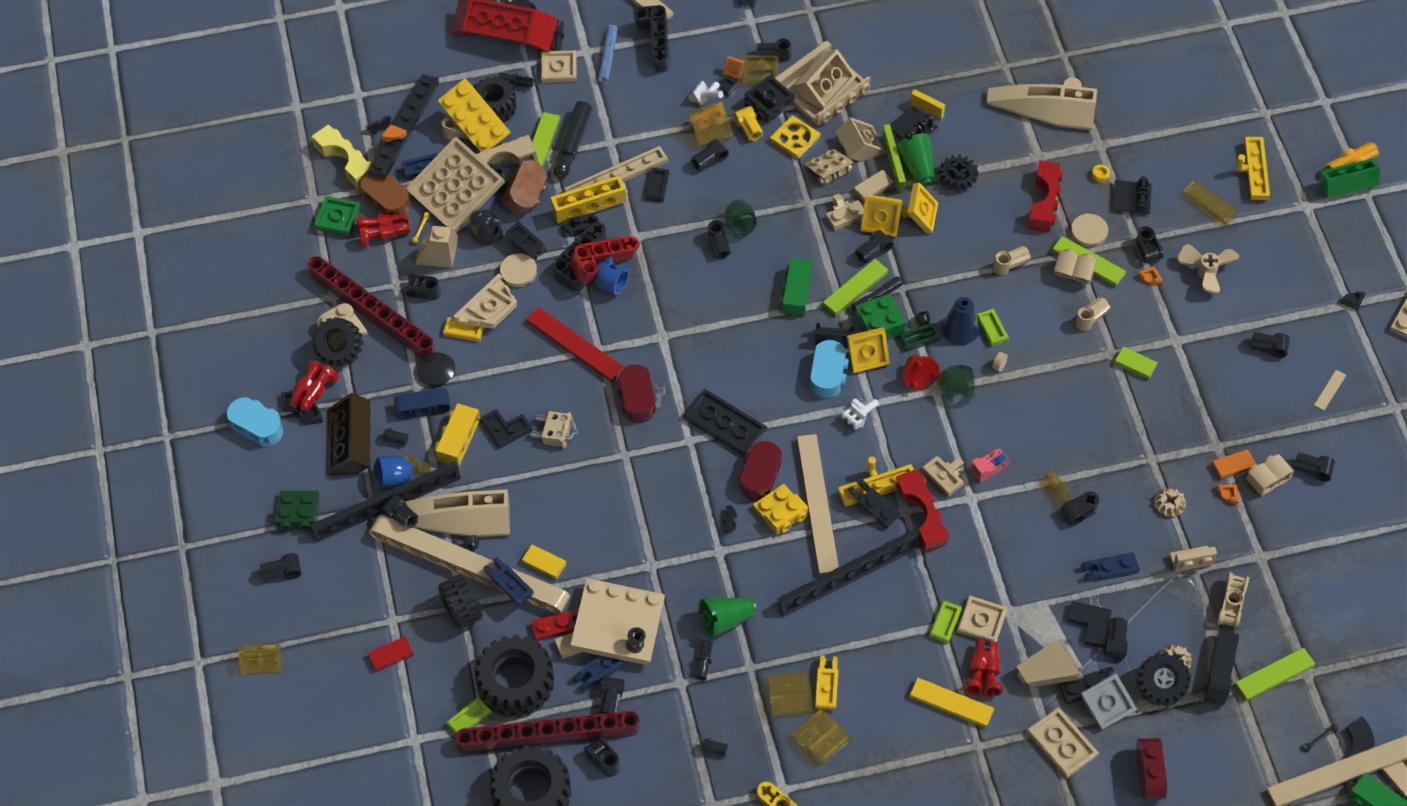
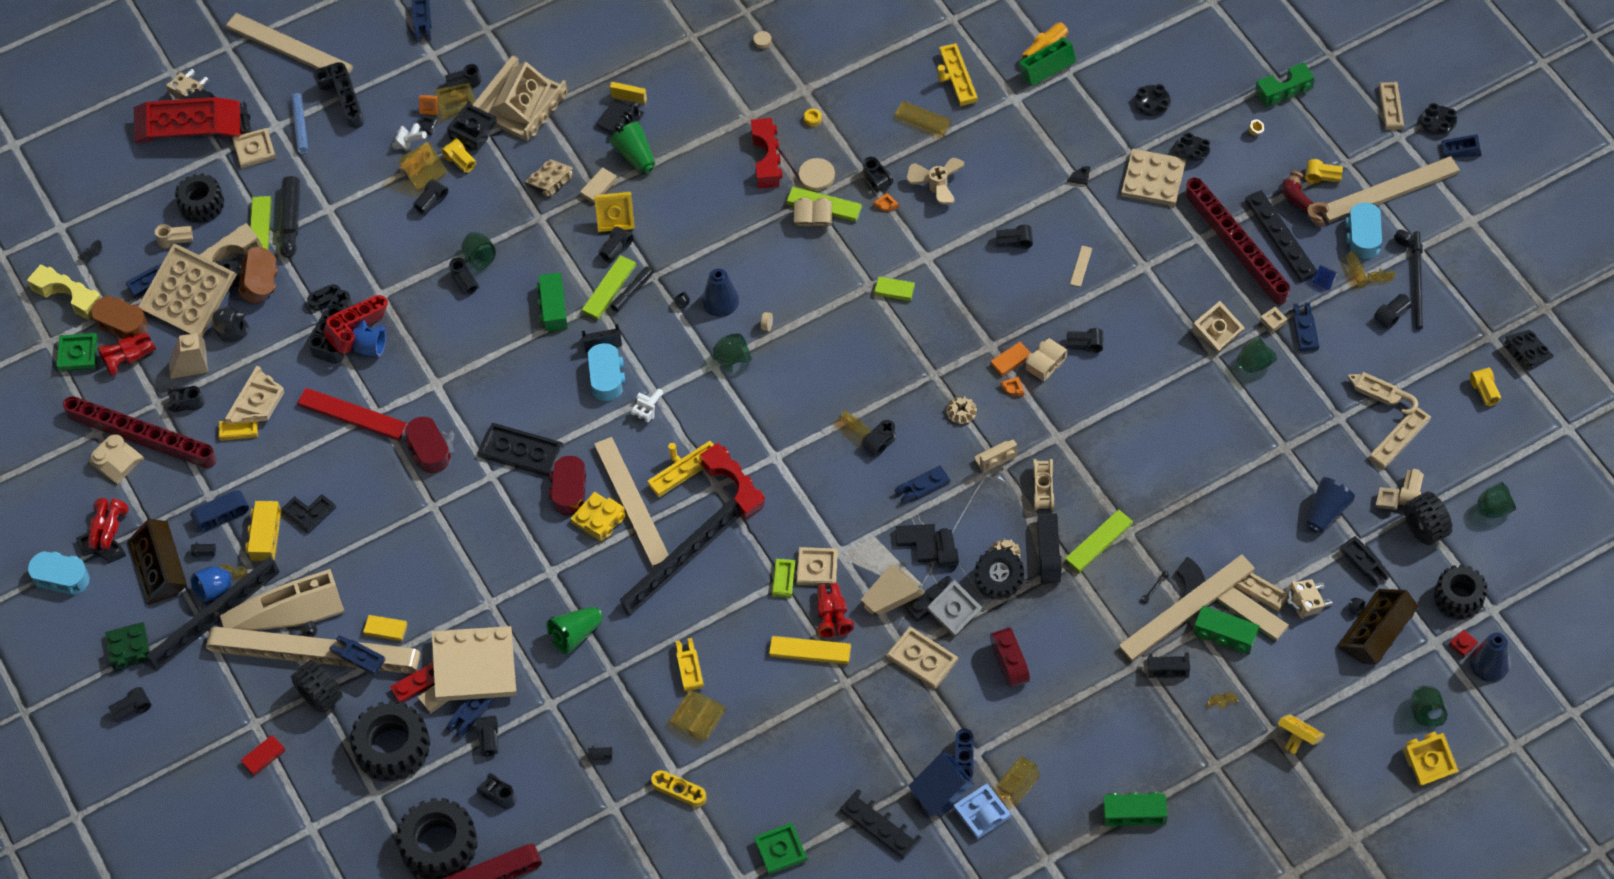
camera: 15 degrees left, 0 degrees up
(260, 659) = (137, 795): clear yellow hinge -> none
(322, 337) = (101, 473): black tyre -> none
(393, 133) = (110, 255): orange tile -> none
(399, 509) = (230, 617): black piece -> none
(406, 120) = (117, 247): black plate -> none
(414, 240) = (162, 355): yellow hinge -> none
(436, 369) = (223, 474): black dish -> none
(469, 716) = (357, 793): lime tile -> none
(474, 116) = (185, 218): yellow plate -> none
(517, 80) = (217, 172): black axle -> none
(518, 270) = (275, 357): tan tile -> none
(525, 240) = (274, 326): black hinge -> none
(538, 727) = (427, 783): dark red beam -> none
(556, 429) = (359, 499): tan piece -> none
(588, 199) = (324, 270): yellow brick -> none
(626, 169) = (343, 240): tan tile -> none
(633, 641) = (496, 676): black bush -> none
(657, 184) = (387, 238): black tile -> none
(704, 660) = (566, 677): black axle -> none
(730, 523) = (553, 541): black piece -> none
(783, 130) = (514, 147): yellow piece -> none
(790, 693) = (657, 684): clear yellow slope -> none
(844, 213) = (577, 218): tan hinge -> none
(860, 140) = (572, 144): tan slope -> none
(868, 350) = (638, 343): yellow tile -> none
(875, 503) = (686, 486): black hinge -> none
(881, 313) = (641, 312): green brick -> none
(894, 158) = (610, 153): lime tile -> none
(921, 208) = (651, 195): yellow tile -> none
(921, 339) = (686, 320): dark green tile -> none
(921, 372) = (694, 351): red piece -> none
(945, 474) = (744, 441): tan hinge -> none
(958, 172) = (676, 151): black gear -> none
(989, 465) = (783, 421): coral leg -> none
(992, 327) = (750, 291): lime tile -> none
(1007, 260) = (746, 224): tan piece -> none
(1048, 103) = (743, 62): tan wedge -> none
(1090, 314) = (840, 253): tan piece -> none
(1132, 196) = (848, 131): black hinge -> none

